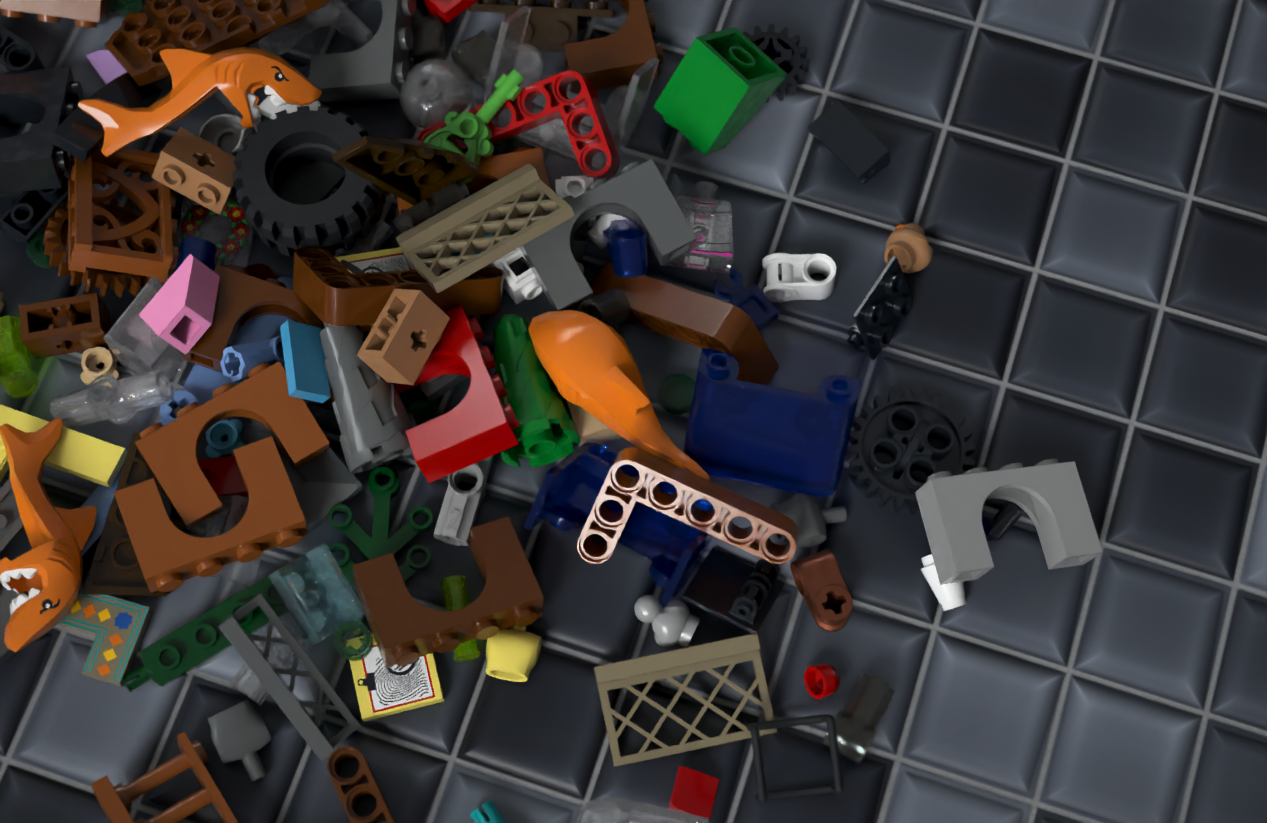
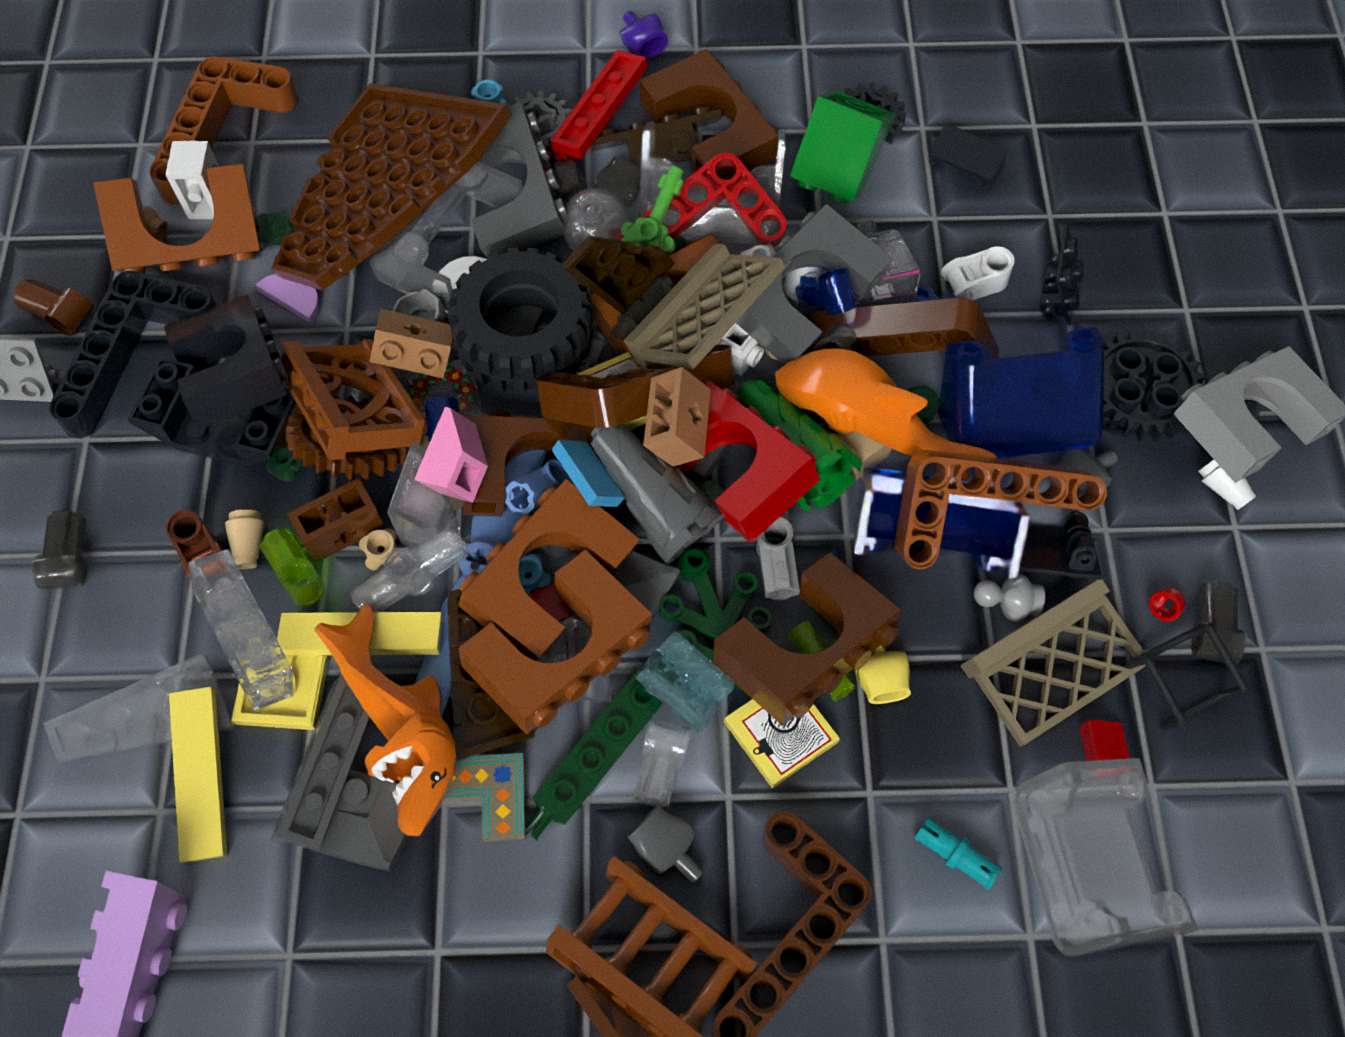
camera: 20 degrees left, 5 degrees down
(83, 134) = (303, 322): black slope -> none
(197, 78) = (417, 242): orange piece -> none
(278, 688) = (687, 774): dark grey fence -> none
(356, 628) = (731, 702): clear green bush -> none
(822, 583) = (1131, 521): copper piece -> none
(910, 247) = (1051, 223): medium nougat animal -> none

